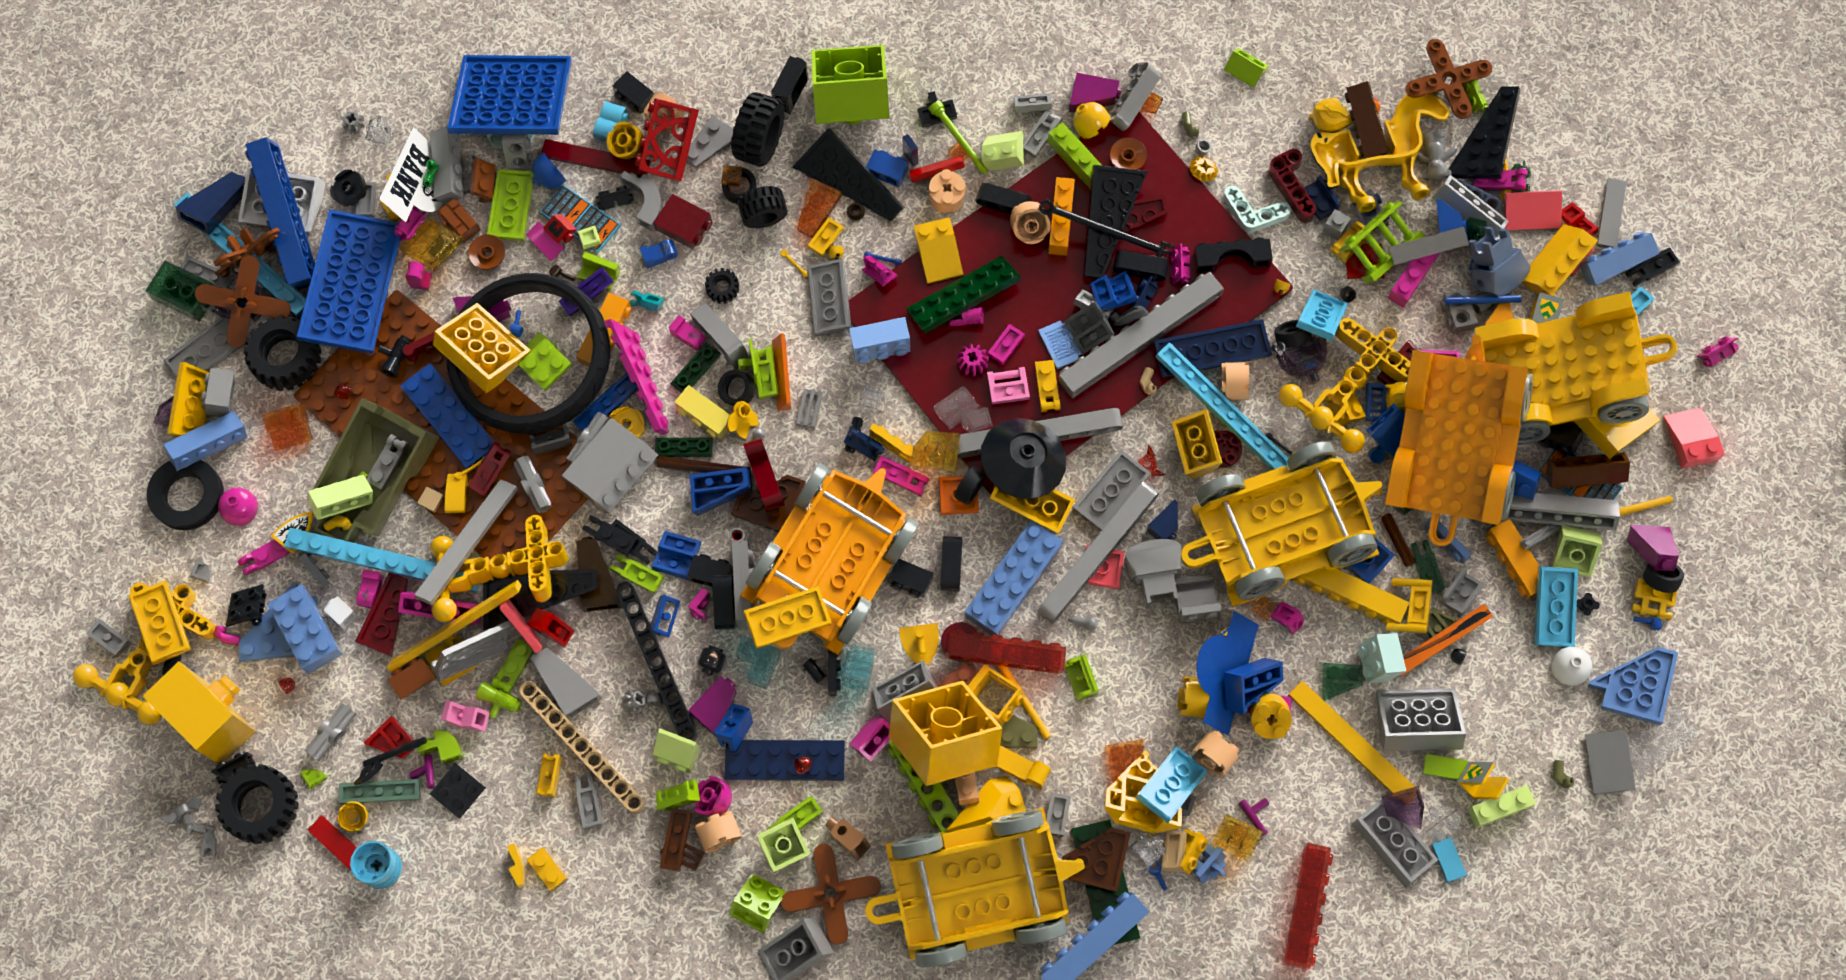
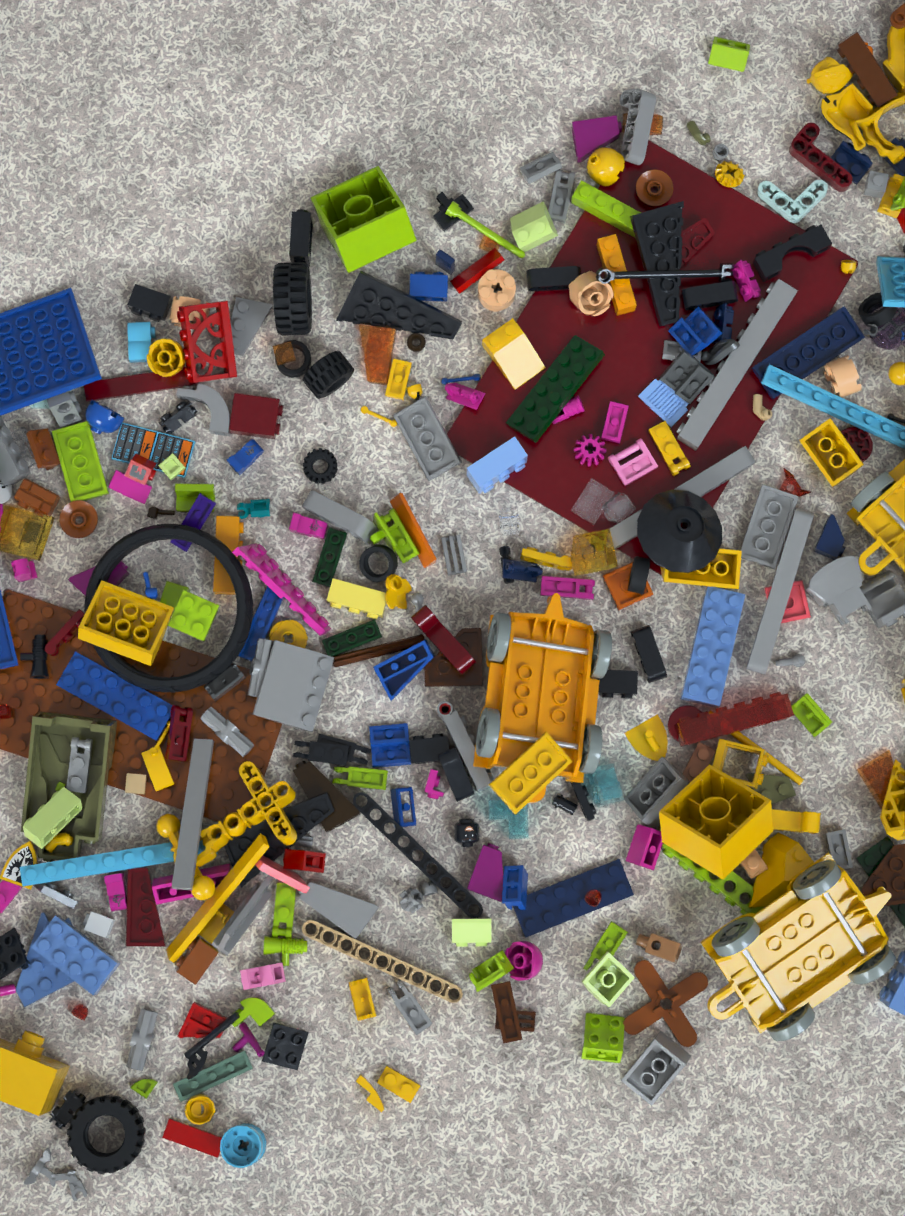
camera: 25 degrees left, 10 degrees up
(718, 831) = (542, 989): light nougat brick -> none

